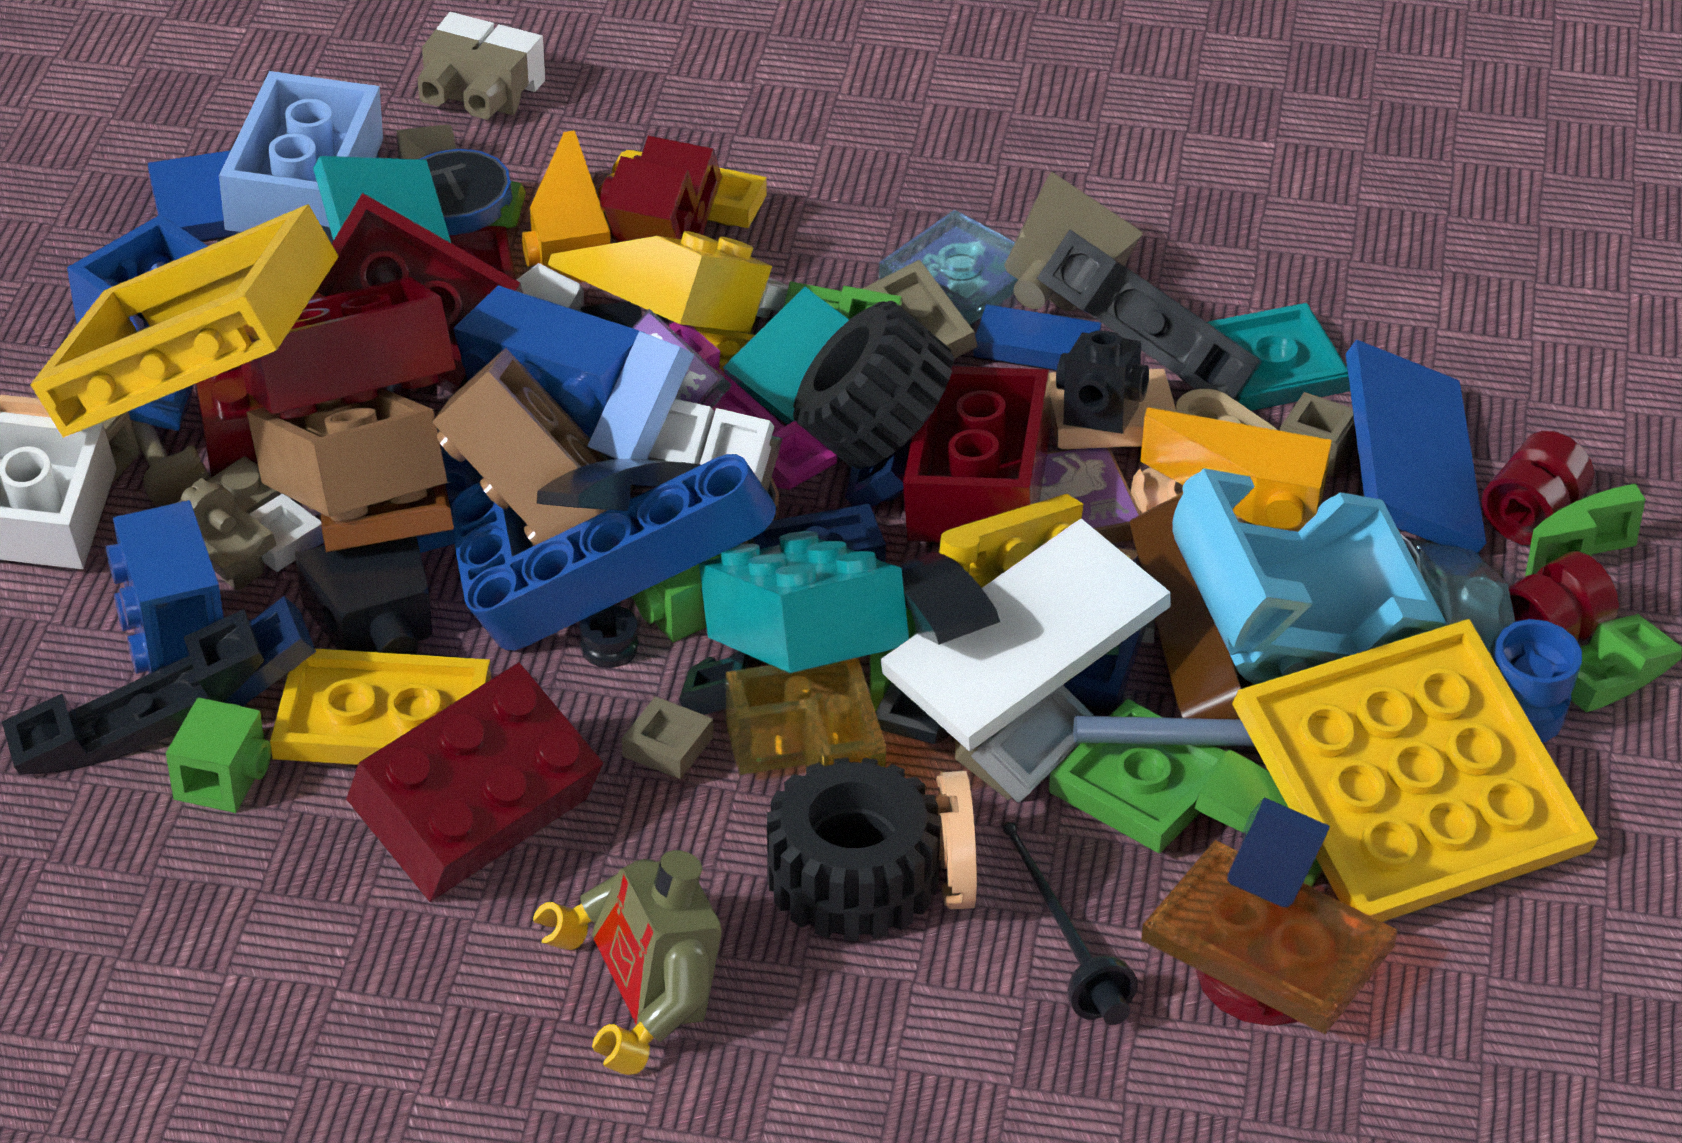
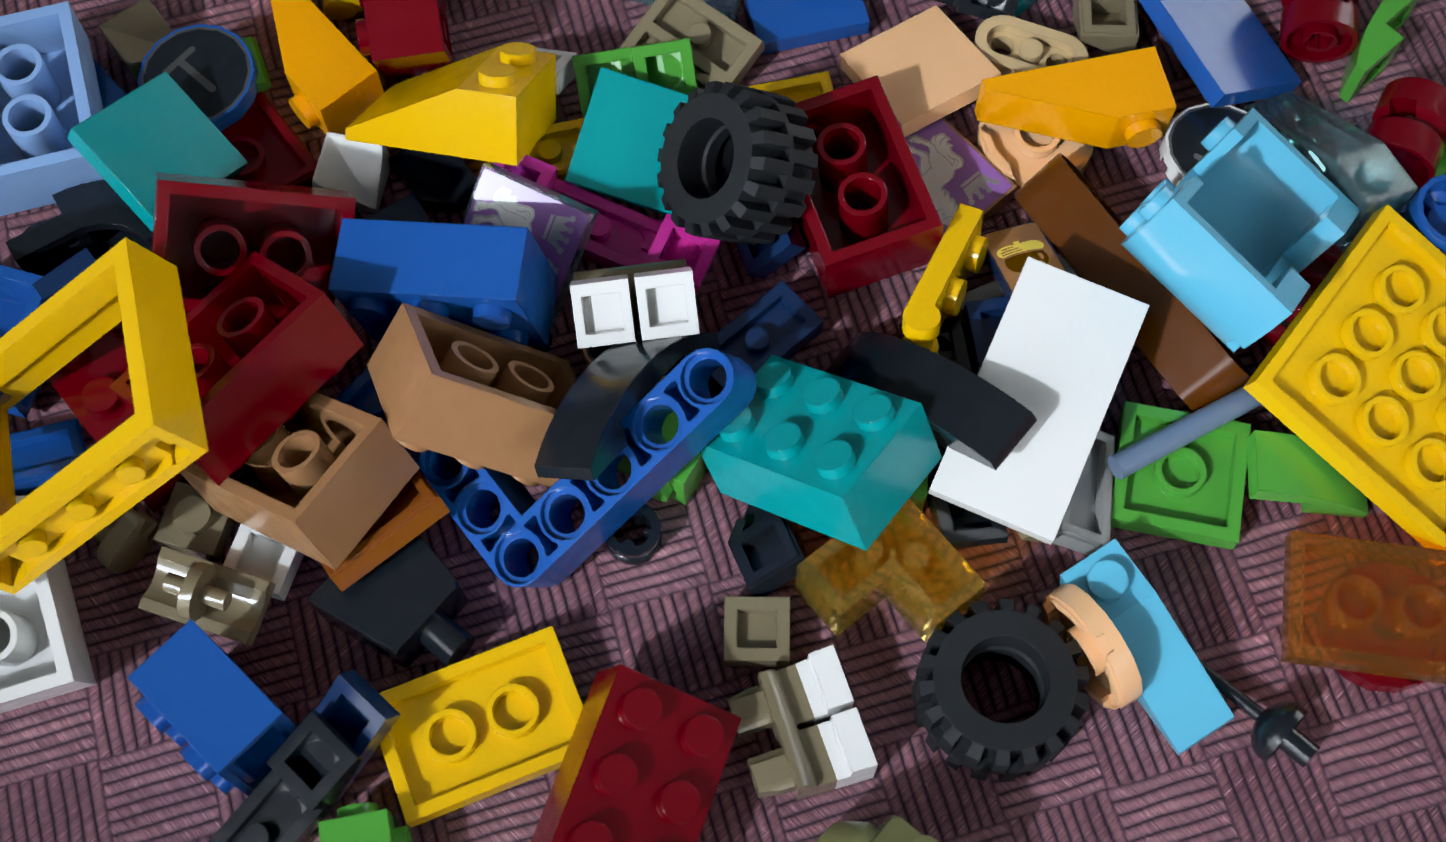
camera: 25 degrees left, 25 degrees up
(641, 398) = (560, 300): light blue tile -> none
(665, 803) = (813, 725): none -> hips
(1014, 870) = (1174, 682): none -> medium azure slope
(1102, 381) = (925, 64): black brick -> none
(1276, 852) = (1376, 532): dark blue slope -> none

